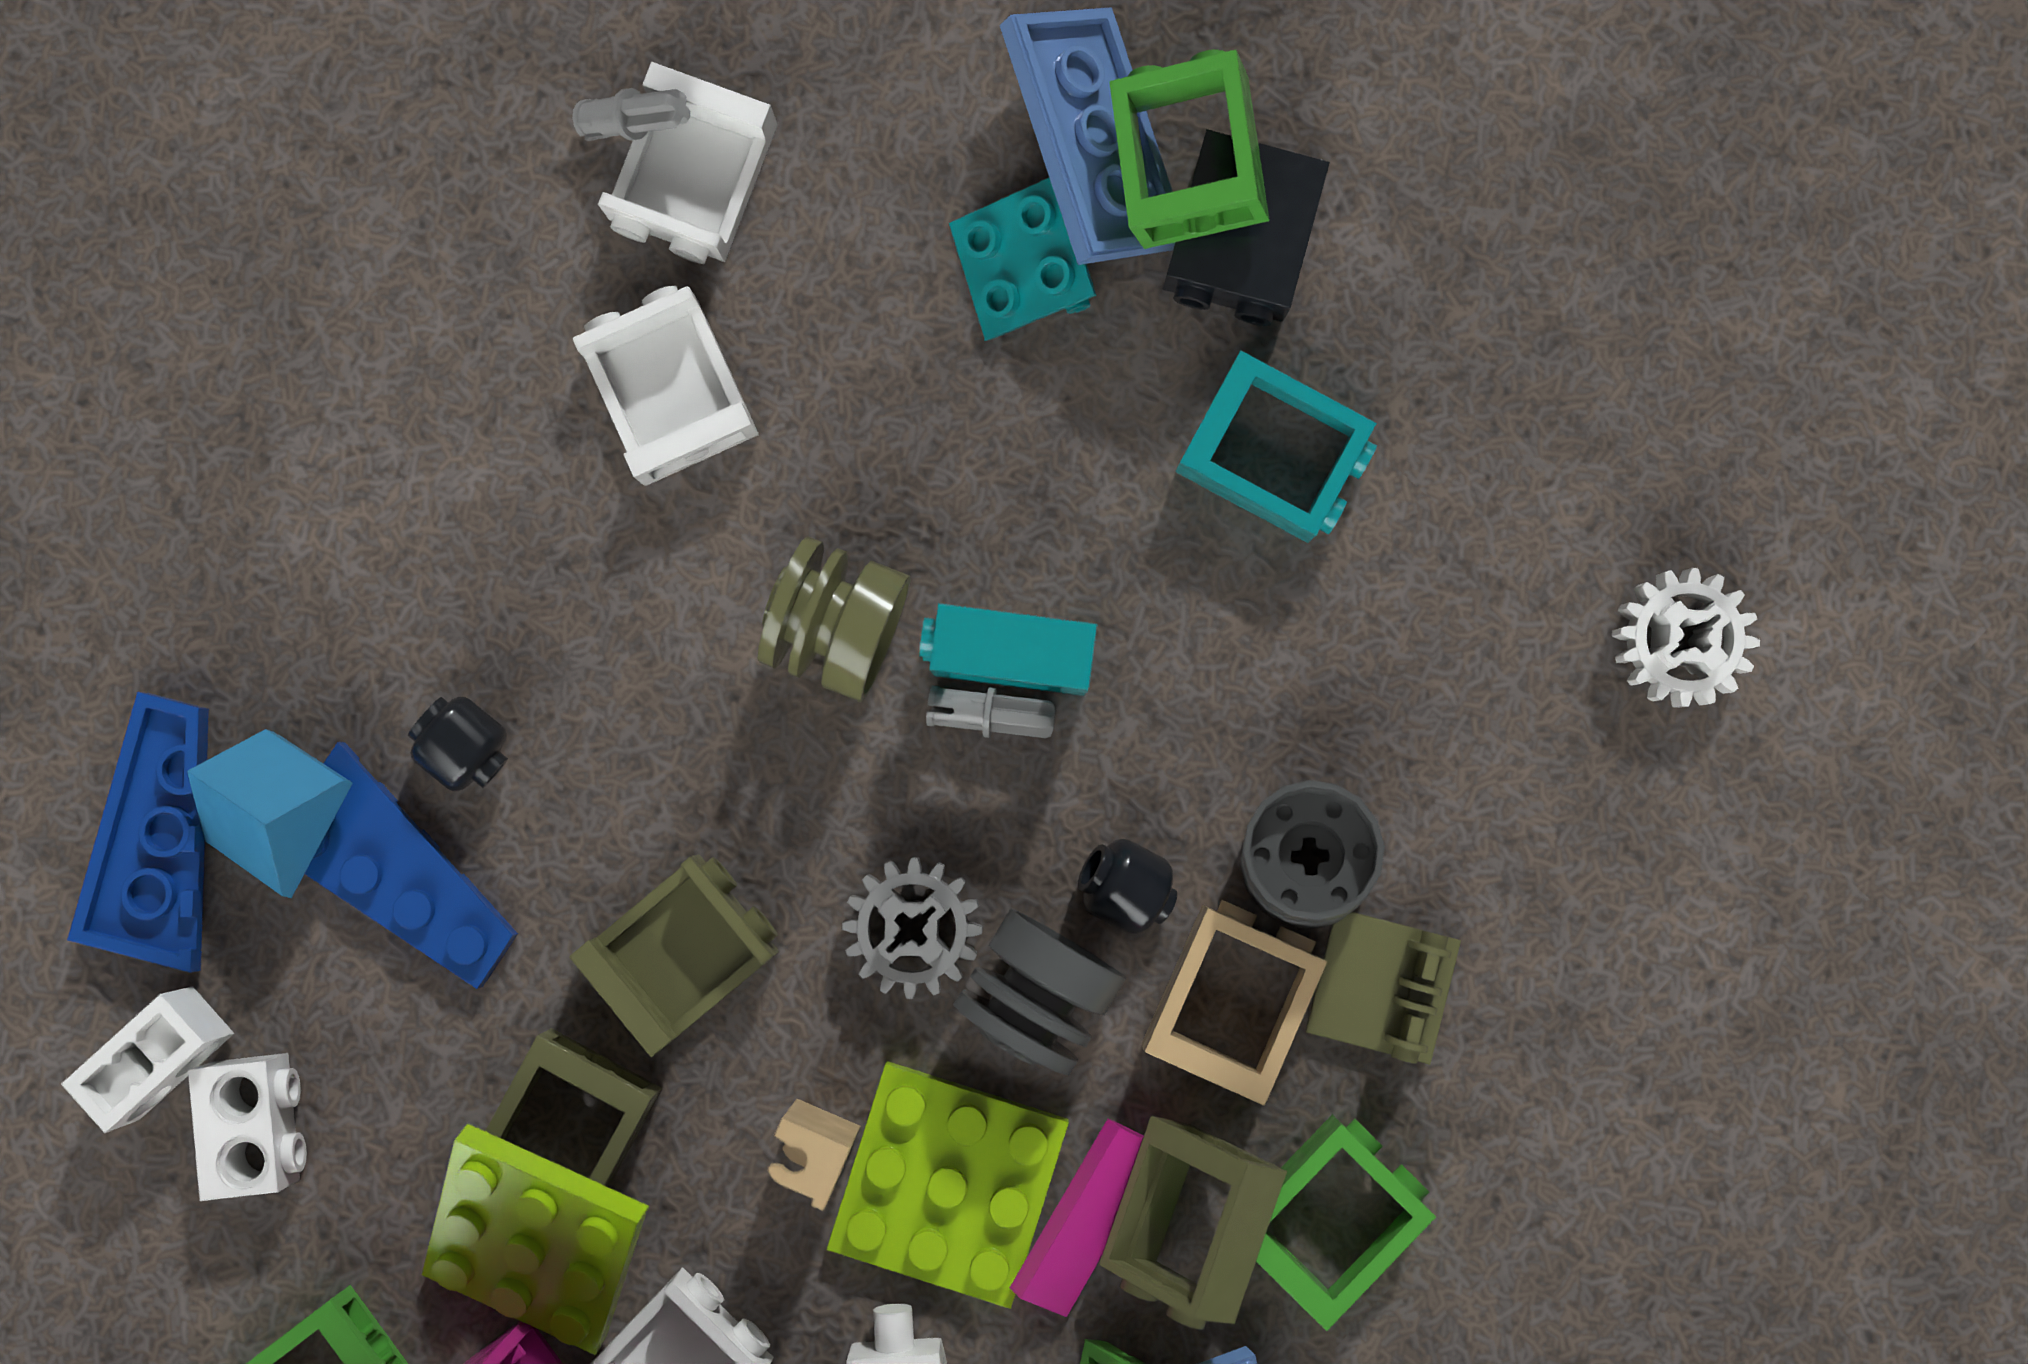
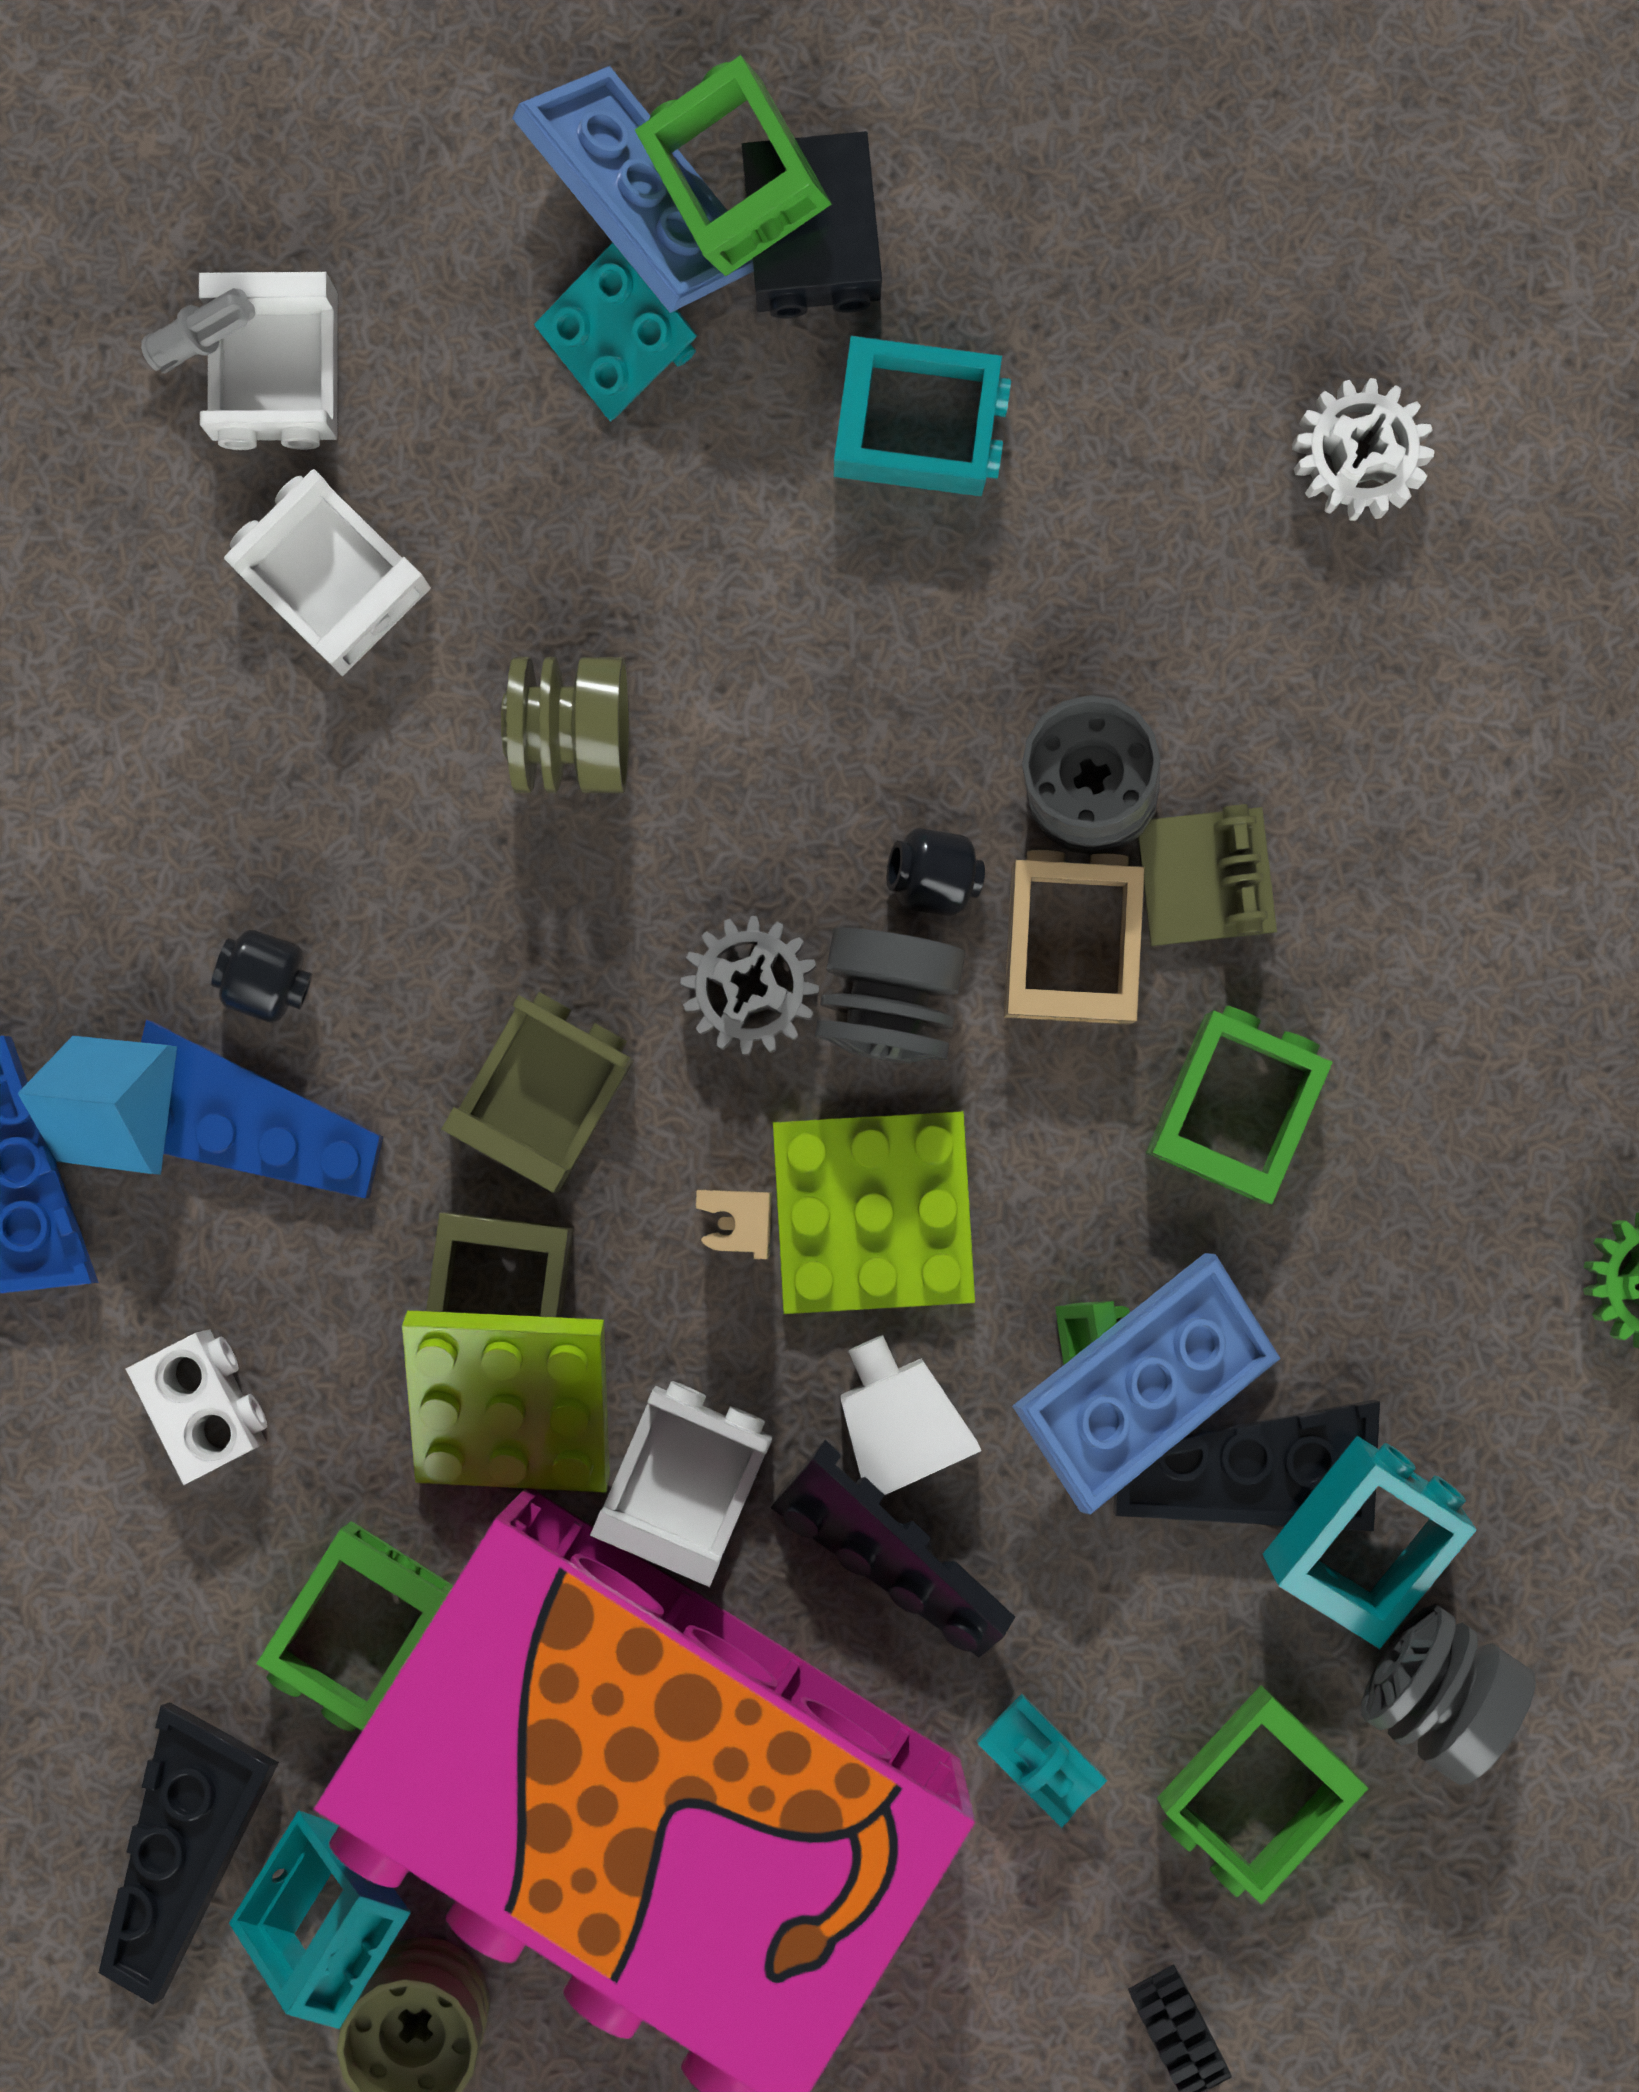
camera: 25 degrees left, 0 degrees up
(147, 1058) = (83, 1375): white brick -> none
(990, 712) = (748, 761): light grey axle -> none
(1009, 649) = (743, 691): teal window -> none
(1080, 1223) = (1013, 1191): dark pink tile -> none
(1148, 1209) = (1067, 1150): olive window -> none

